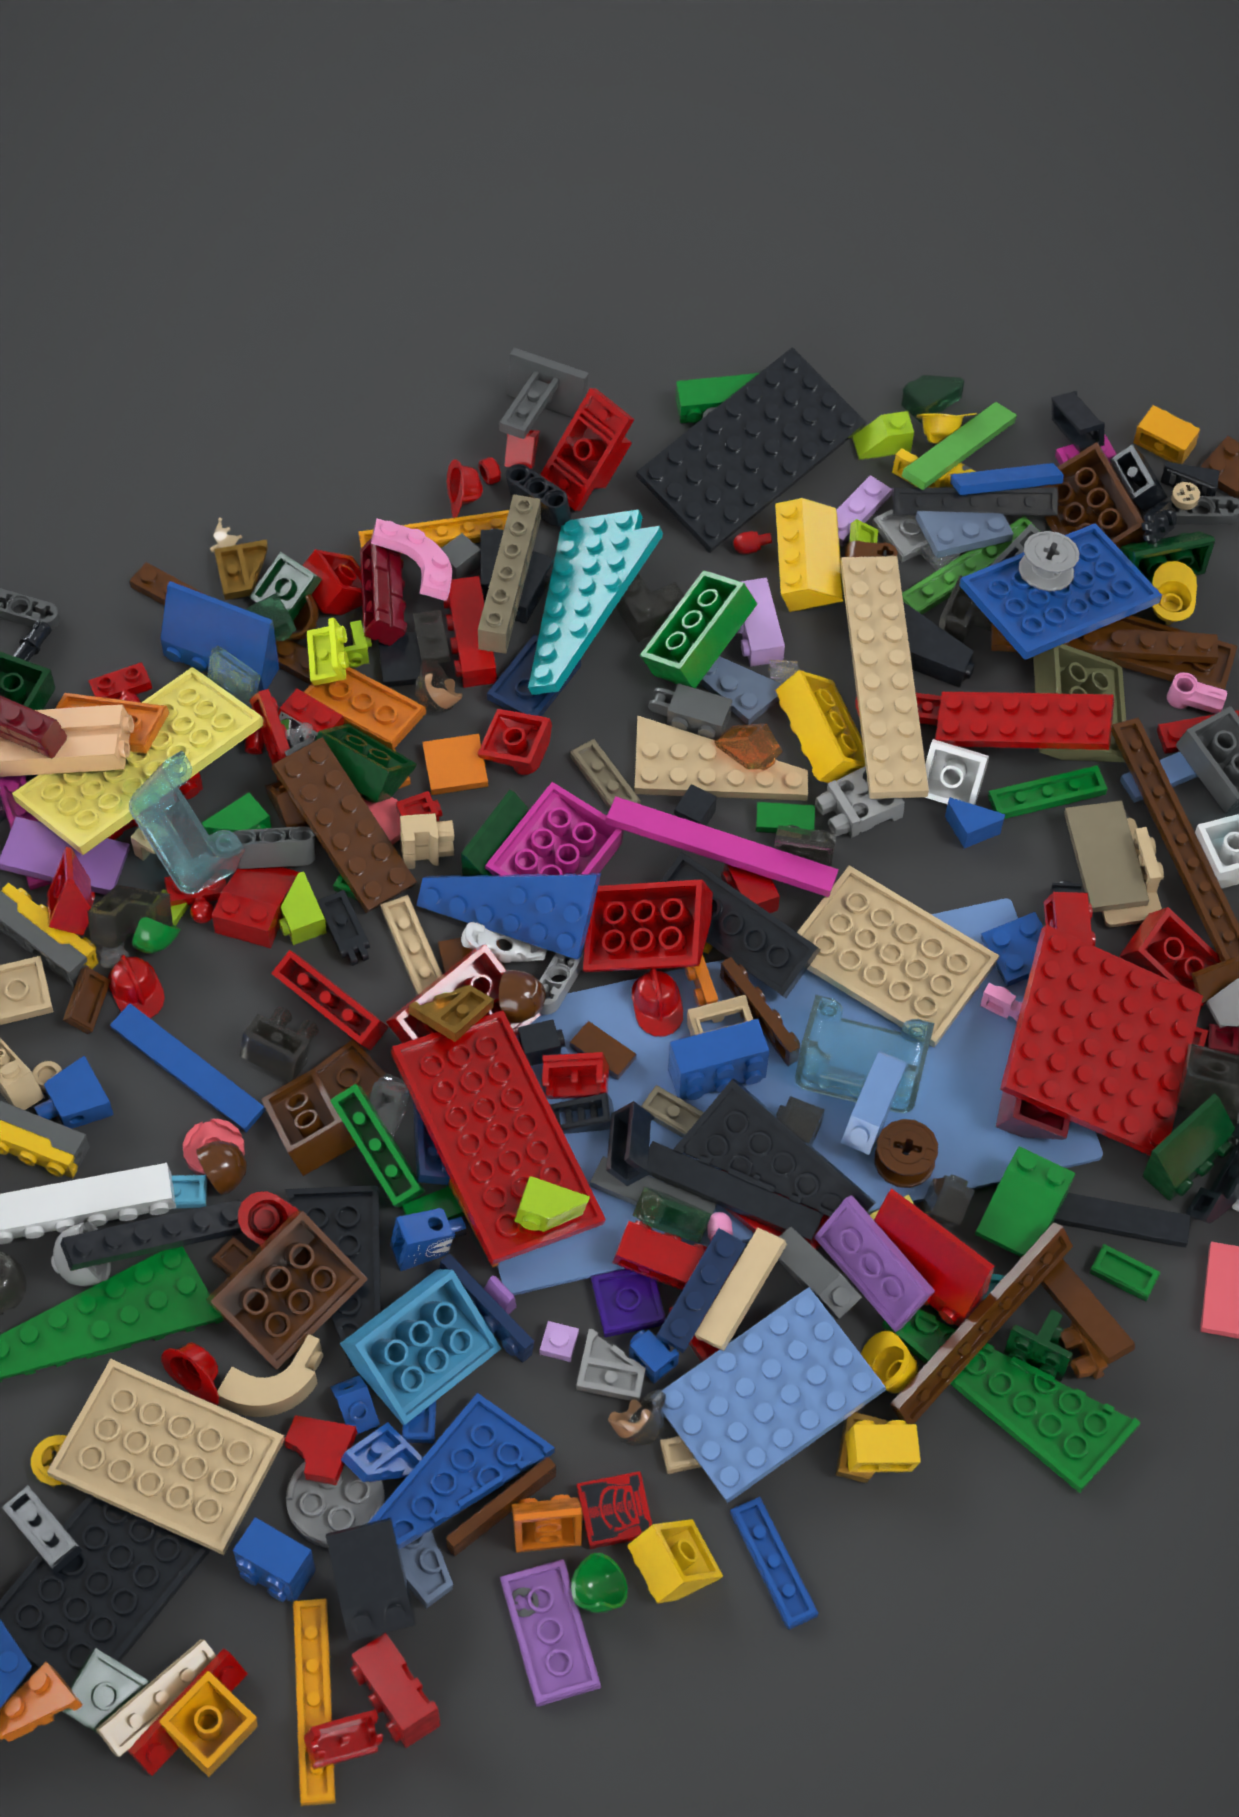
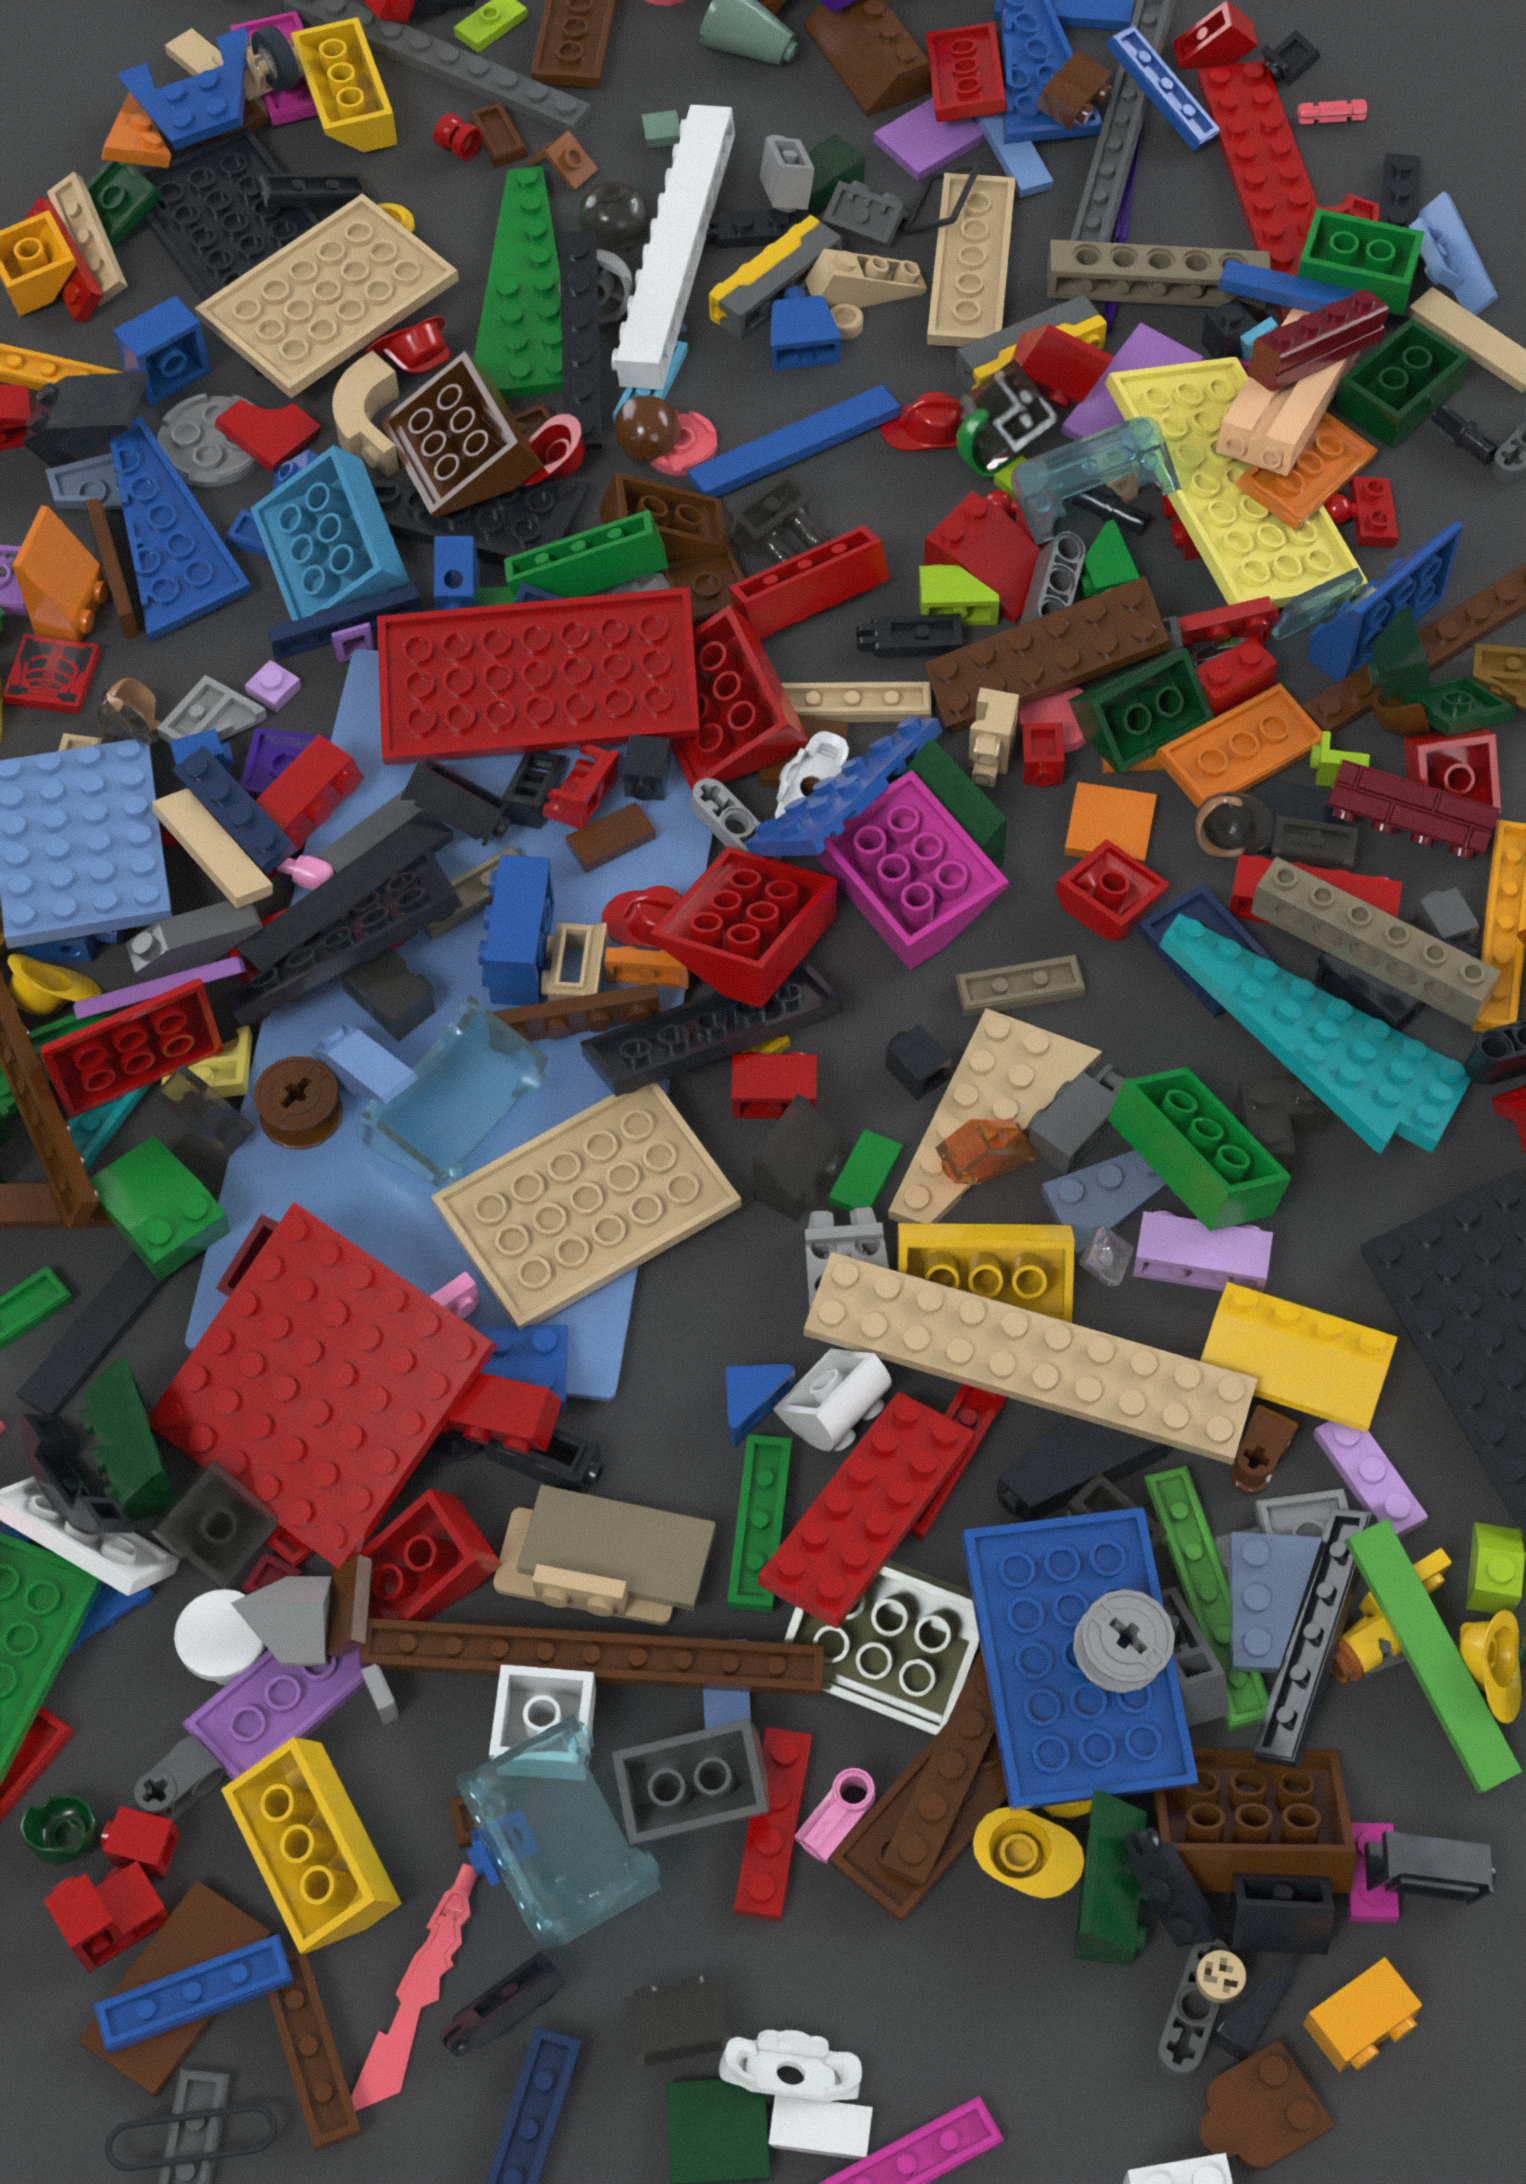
camera: 115 degrees right, 0 degrees up
(86, 1000) = (922, 368): reddish brown tile -> none
(304, 730) = (1199, 644): clear plate -> none
(327, 653) = (1322, 712): neon yellow bracket -> none
(382, 1456) = (226, 477): blue wing -> none
(428, 555) = (1447, 867): bright pink plate -> none
(454, 1011) = (708, 662): pearl gold wing -> none
(520, 996) = (718, 758): reddish brown helmet -> none
(548, 1205) = (413, 682): lime slope -> none
(671, 1215) = (344, 811): clear green slope -> none
(721, 846) = (826, 1044): dark pink tile -> none
(751, 542) = (1356, 1301): red cylinder -> none
(863, 532) = (1309, 1458): lime tile -> none
(1006, 479) = (1333, 1687): blue tile -> none

